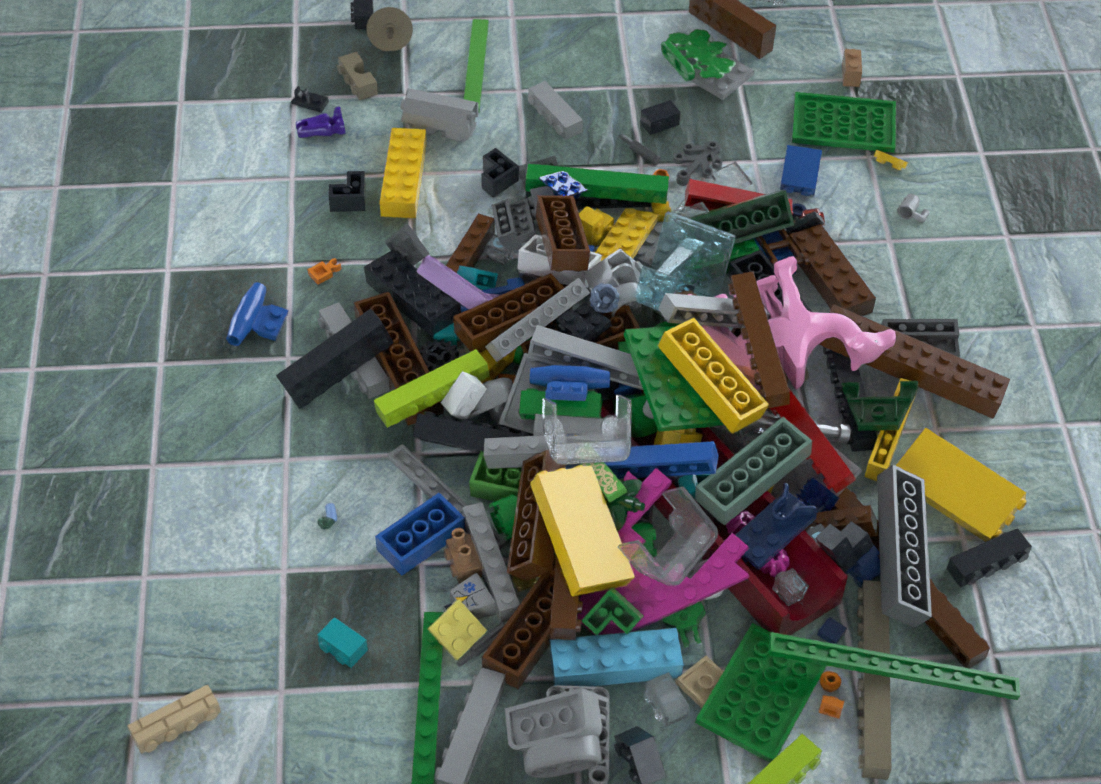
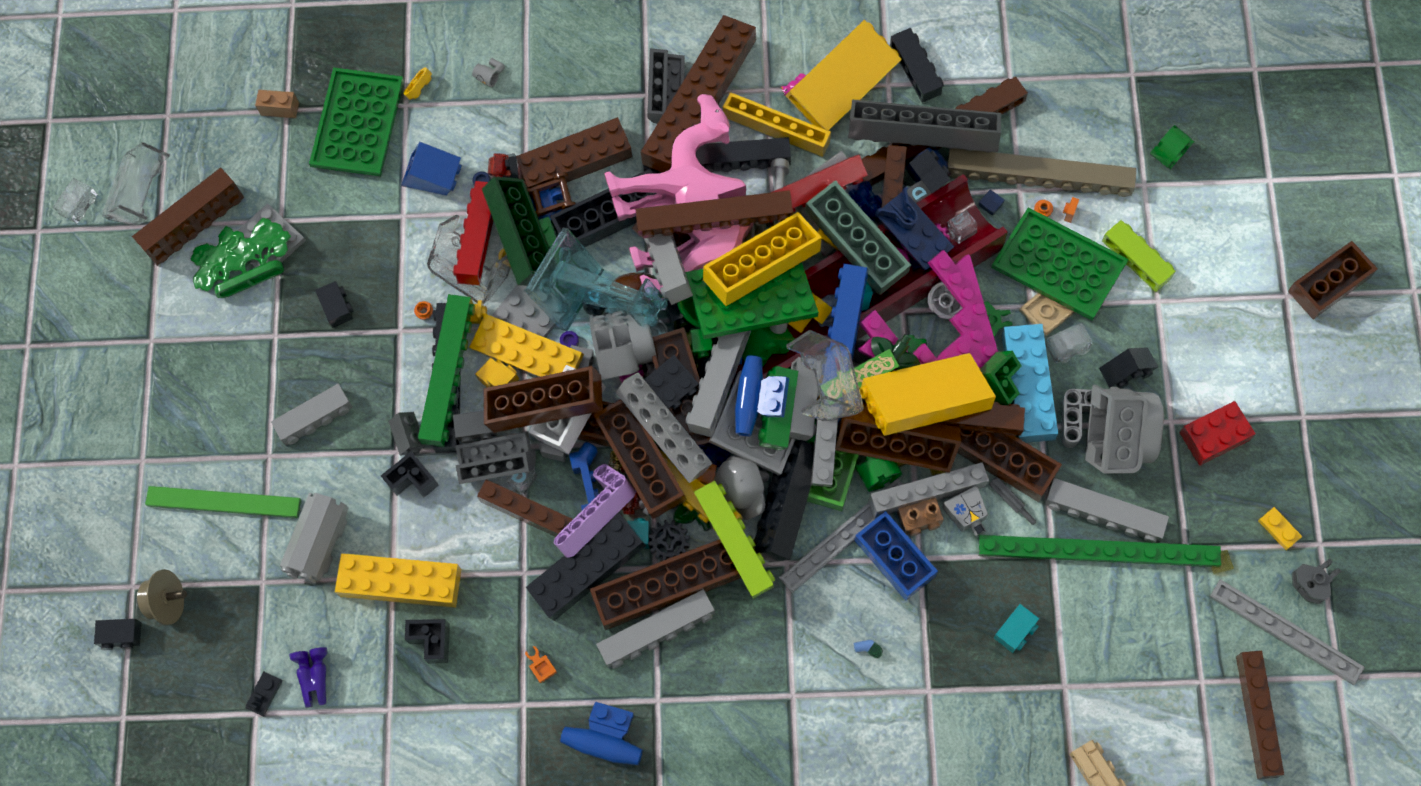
camera: 80 degrees left, 20 degrees up
(335, 358) = (688, 640): black brick -> none
(361, 83) = (248, 632): dark tan arch -> none
(407, 245) = (540, 565): dark grey tile -> none
(457, 629) = (1005, 521): light yellow plate -> none
(463, 395) = (749, 506): white brick -> none
(477, 277) = (571, 498): teal brick -> none
(563, 184) = (459, 401): clear blue hinge -> none
(604, 298) = (647, 357): sand blue piece -> none
(641, 150) = (379, 328): dark grey axle -> none
(686, 547) = (938, 311): clear windscreen -> none
(710, 149) = (401, 268): dark grey plant -> none
(879, 412) = (768, 128): dark green wing -> none
(893, 666) = (1041, 154): green plate -> none

